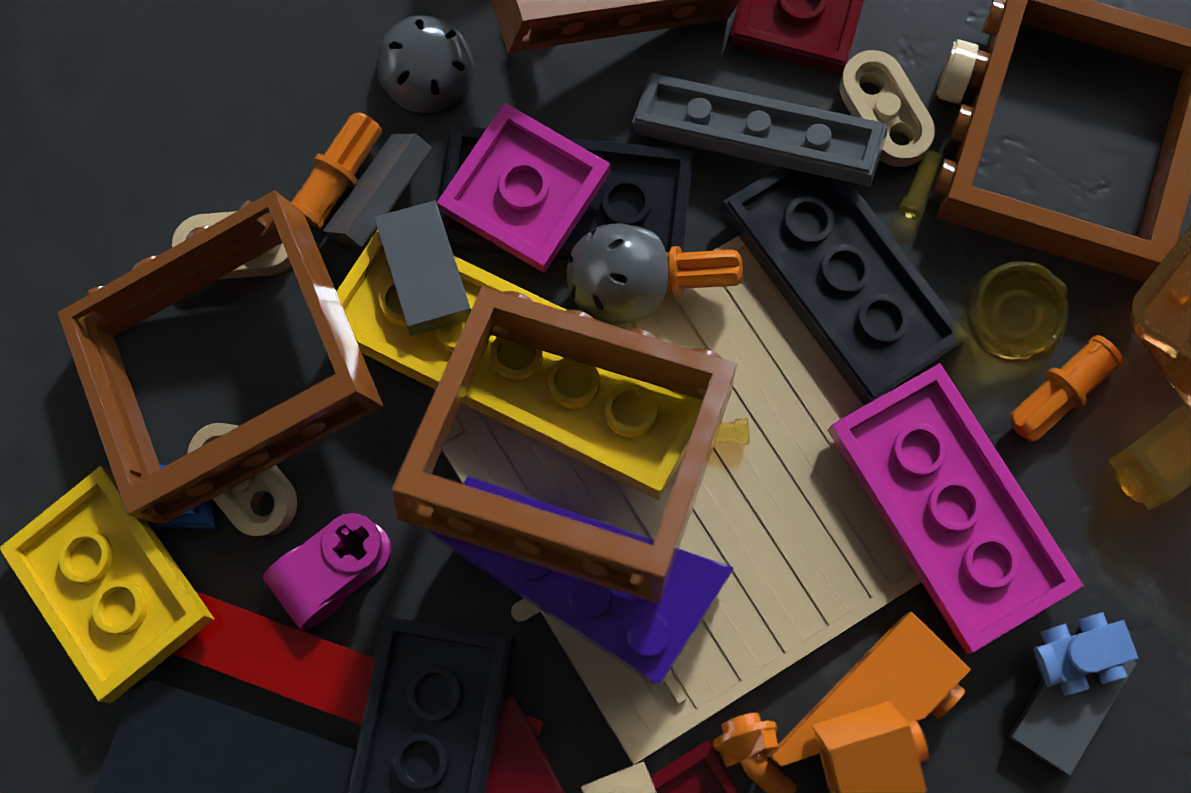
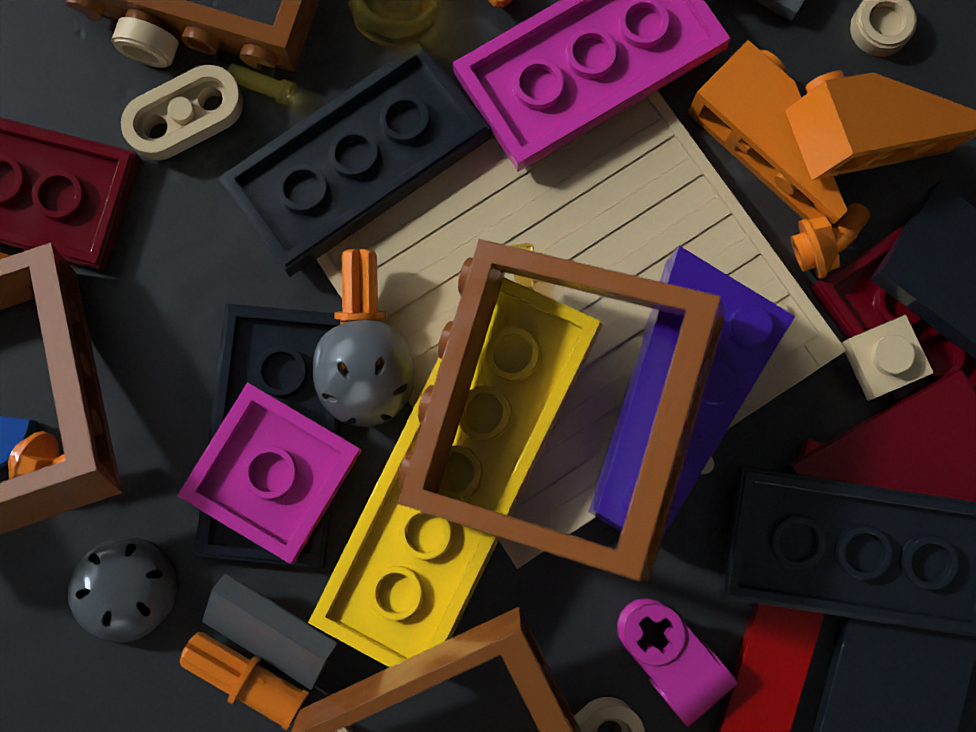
camera: 95 degrees left, 5 degrees up
(423, 268) = (363, 574): dark grey tile -> none
(760, 129) = (205, 236): dark grey tile -> none

